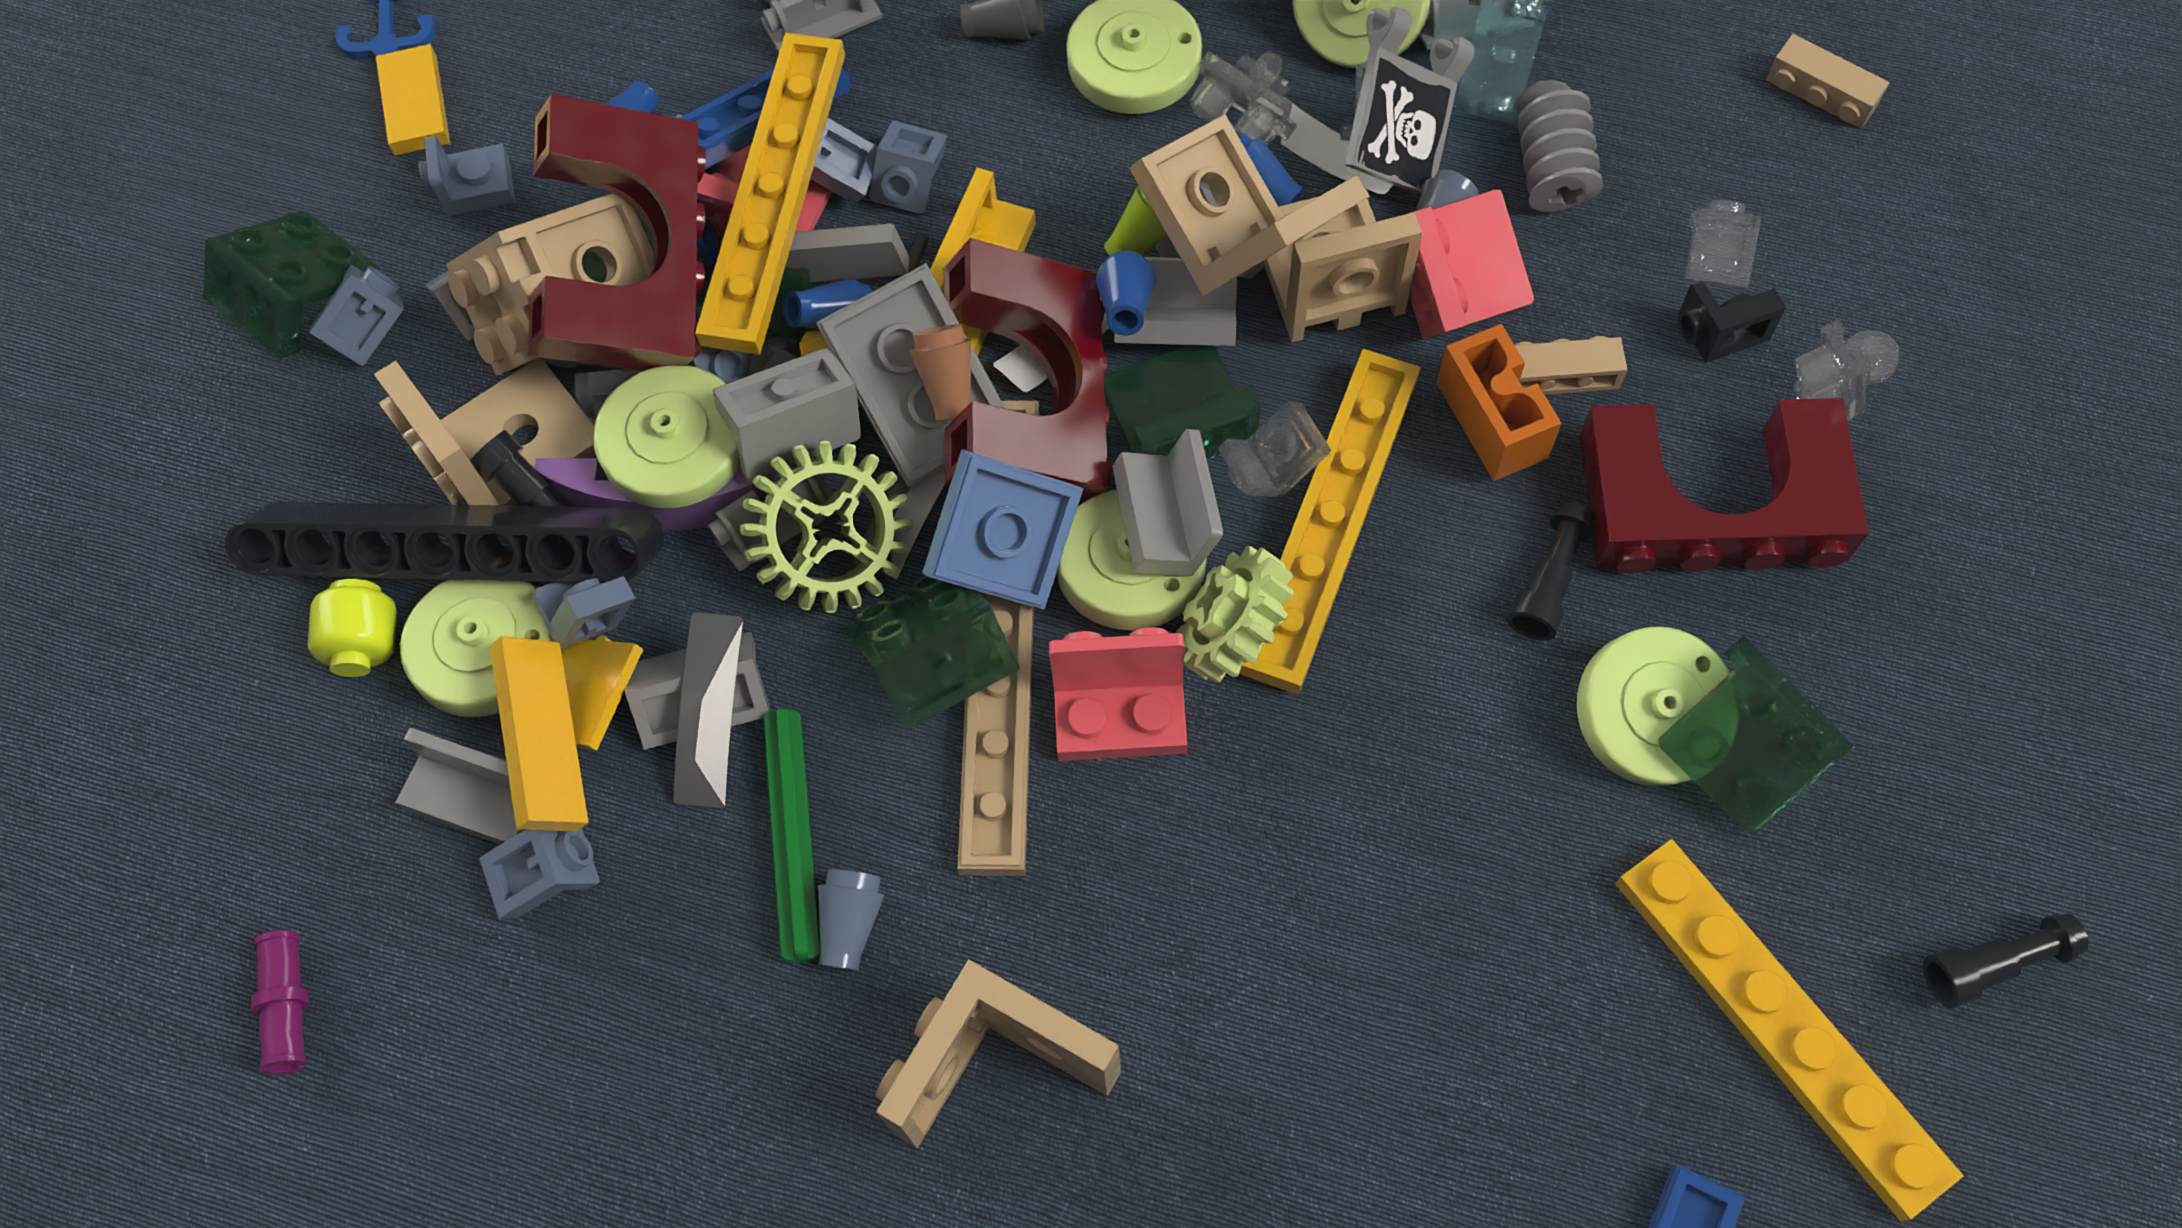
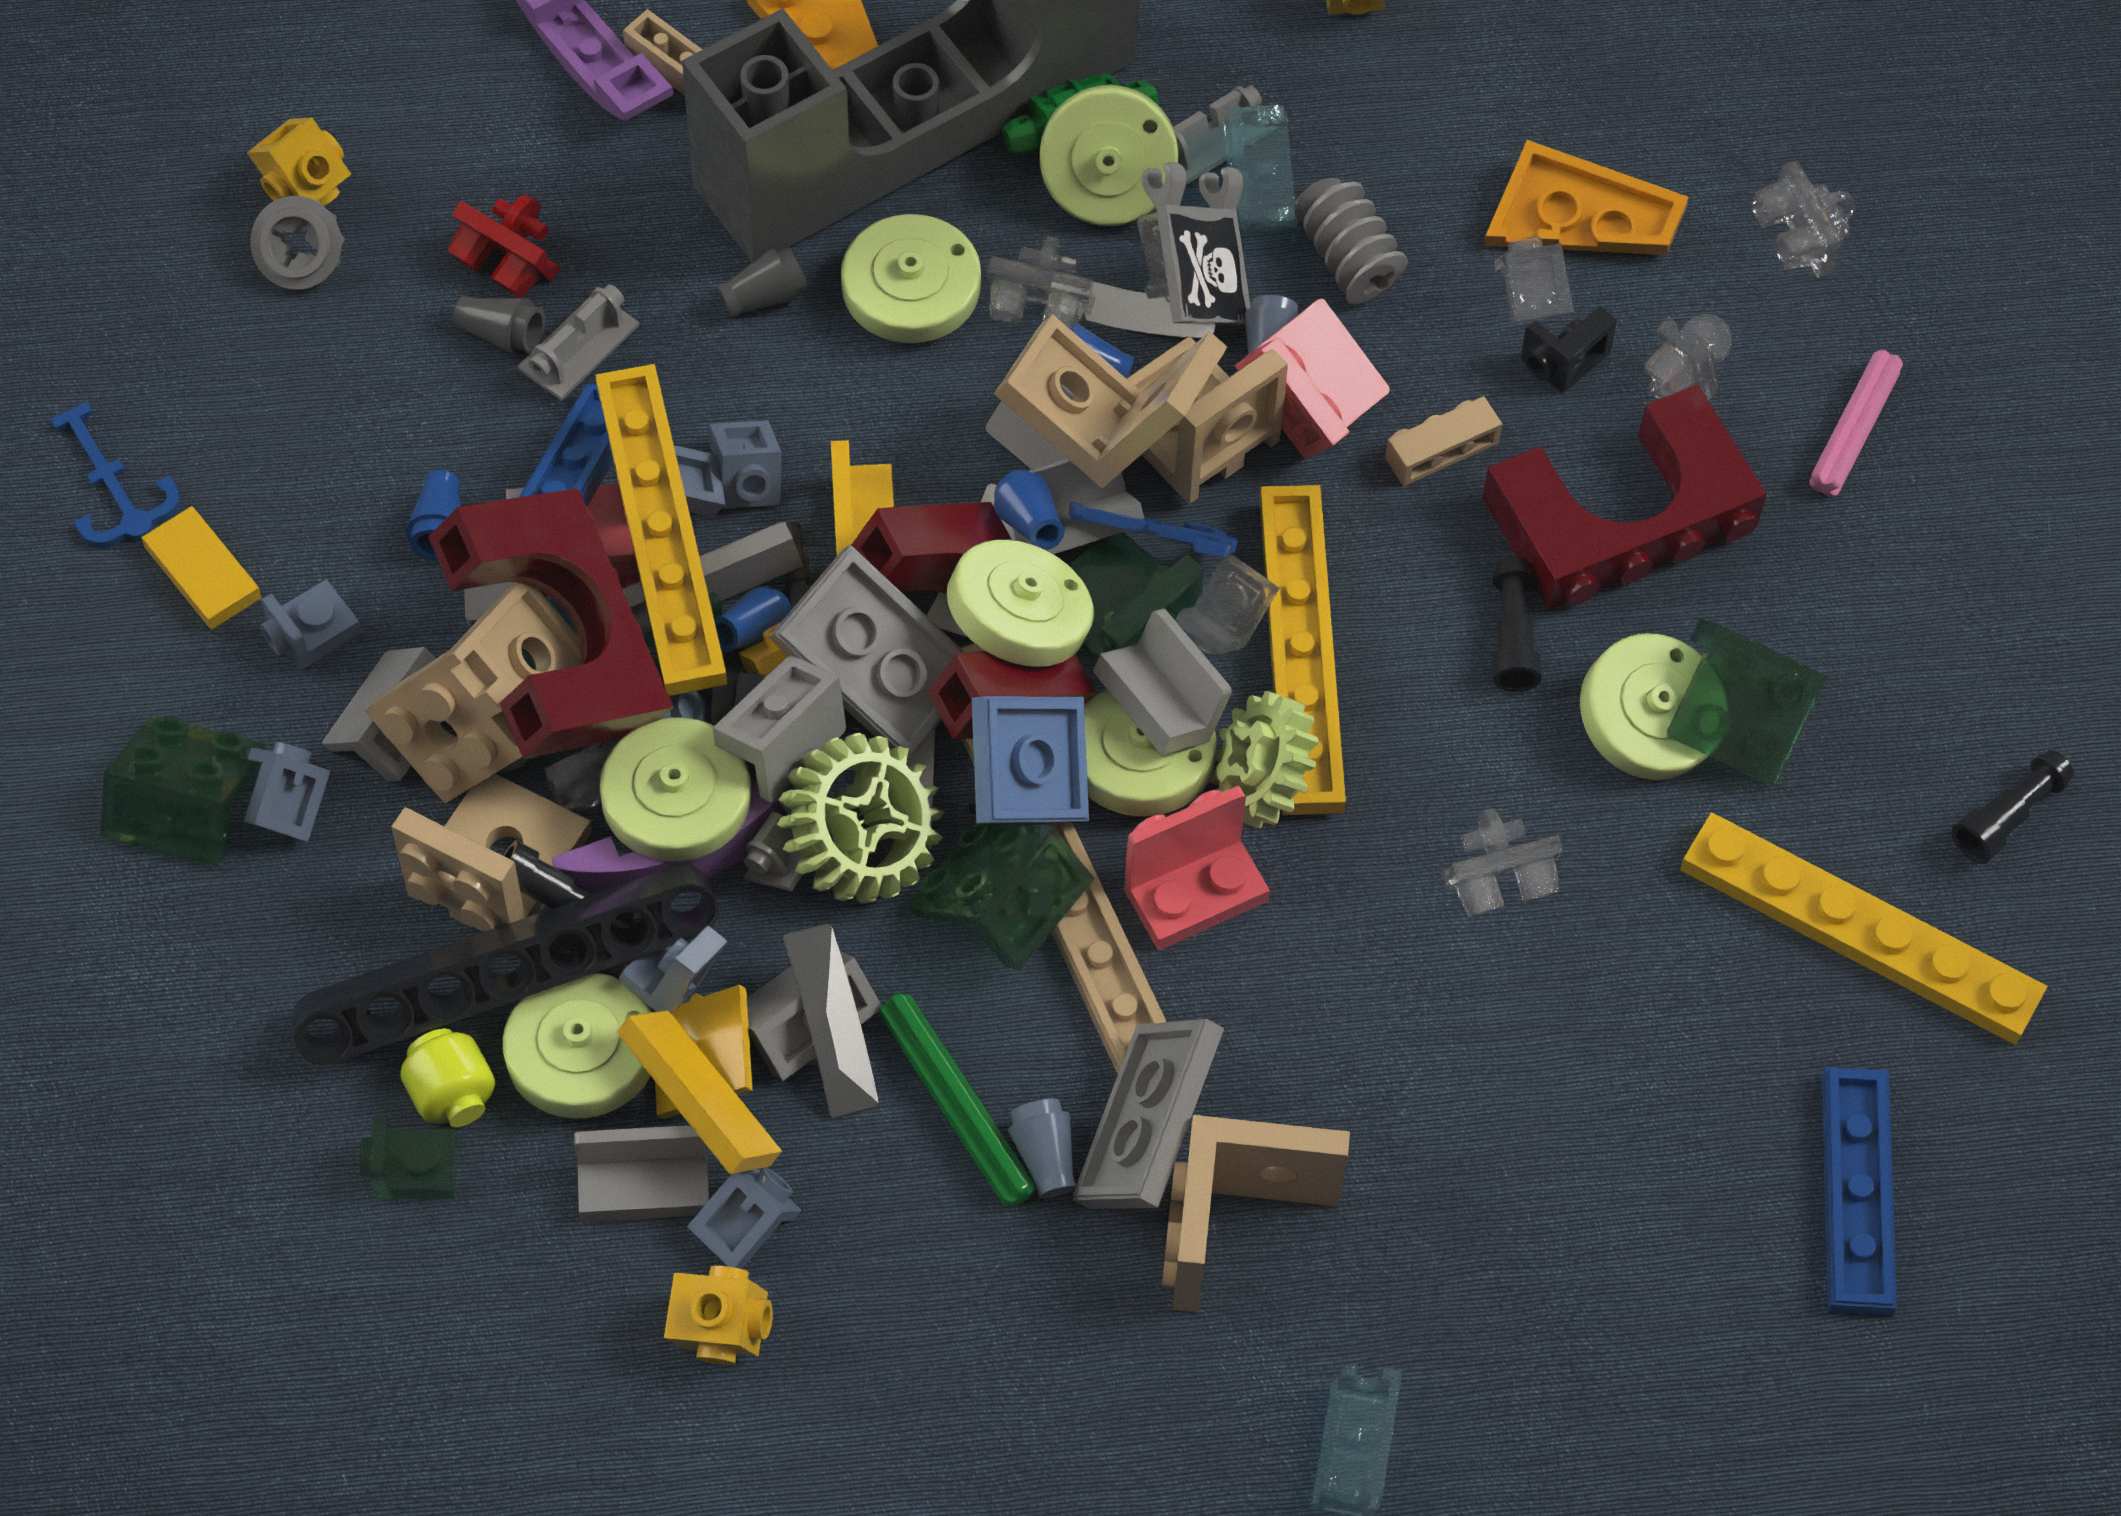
camera: 30 degrees left, 5 degrees down
(280, 690) = (409, 1161): none -> clear green bracket
(280, 1003) = (571, 1418): magenta pin -> none
(451, 960) = (718, 1314): none -> yellow brick
(942, 933) = (1147, 1115): none -> light grey tile
(944, 368) = (909, 634): nougat cone -> none
(1066, 376) = (1020, 603): none -> yellowish green wheel
(1137, 228) = (1004, 444): lime cone -> none
(1281, 379) = (1204, 537): none -> blue piece
(1460, 819) = (1476, 877): none -> clear hips
(1501, 419) = (1399, 497): orange brick -> none
(1804, 192) = (1584, 206): none -> light orange wing
(1827, 81) = (1561, 94): tan piece -> none
(1994, 494) = (1856, 423): none -> bright pink axle
(2034, 275) = (1812, 214): none -> clear hips

